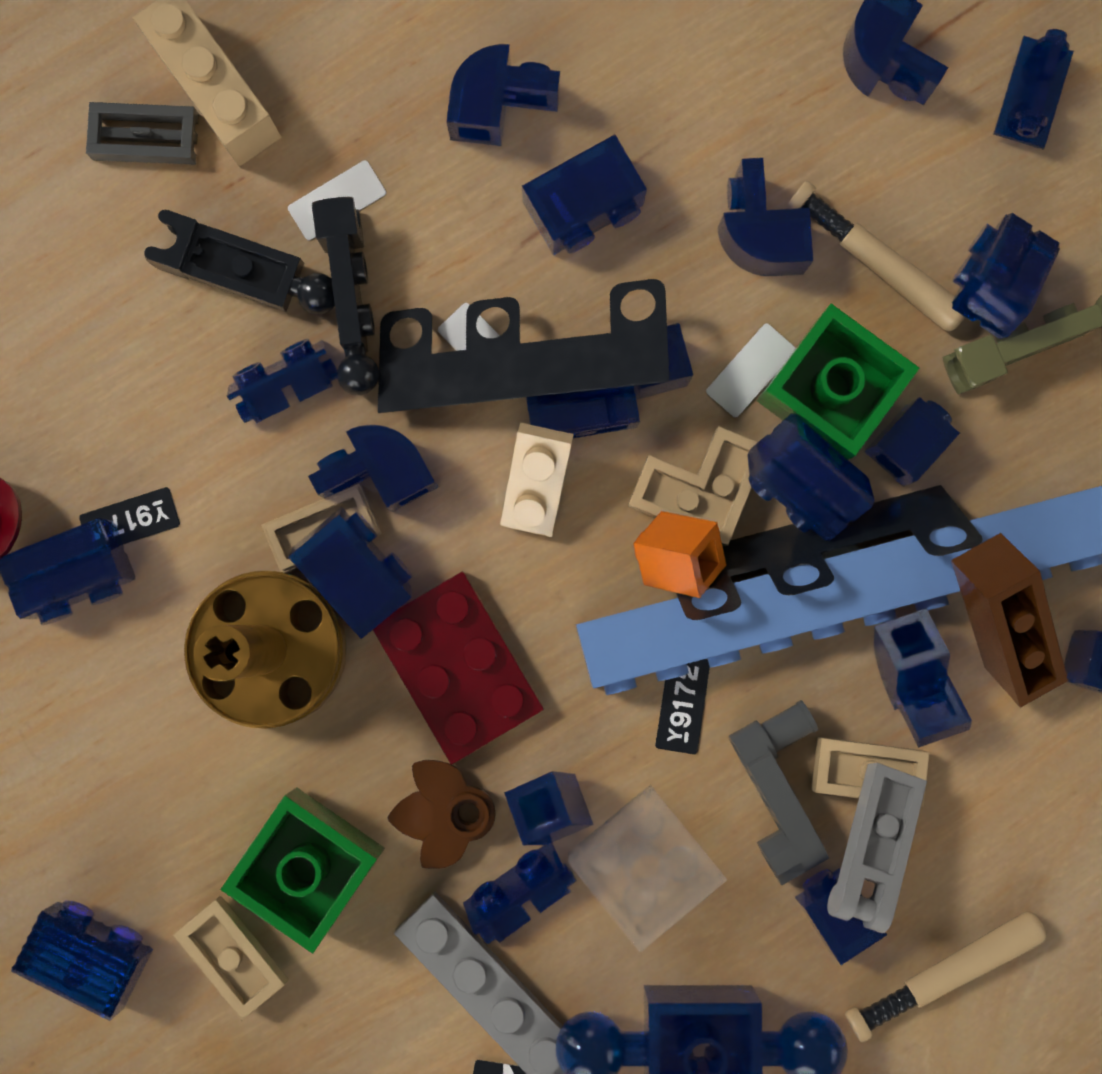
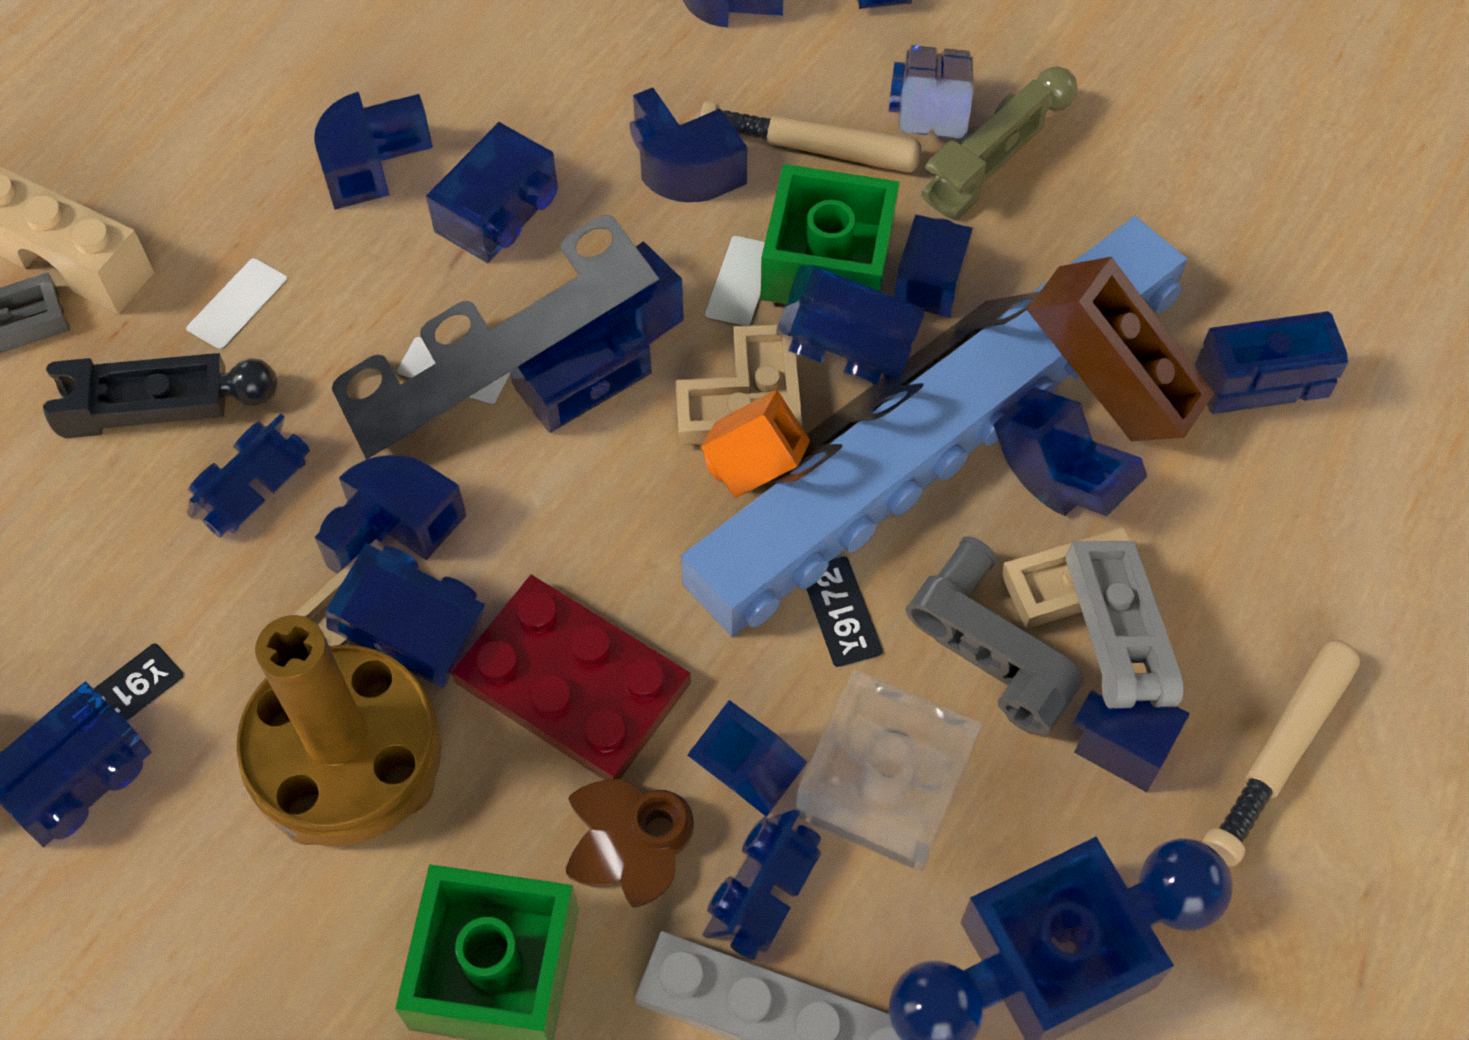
camera: 25 degrees left, 25 degrees down
(339, 234) = (256, 325): black plate -> none
(536, 479) = (568, 447): tan plate -> none

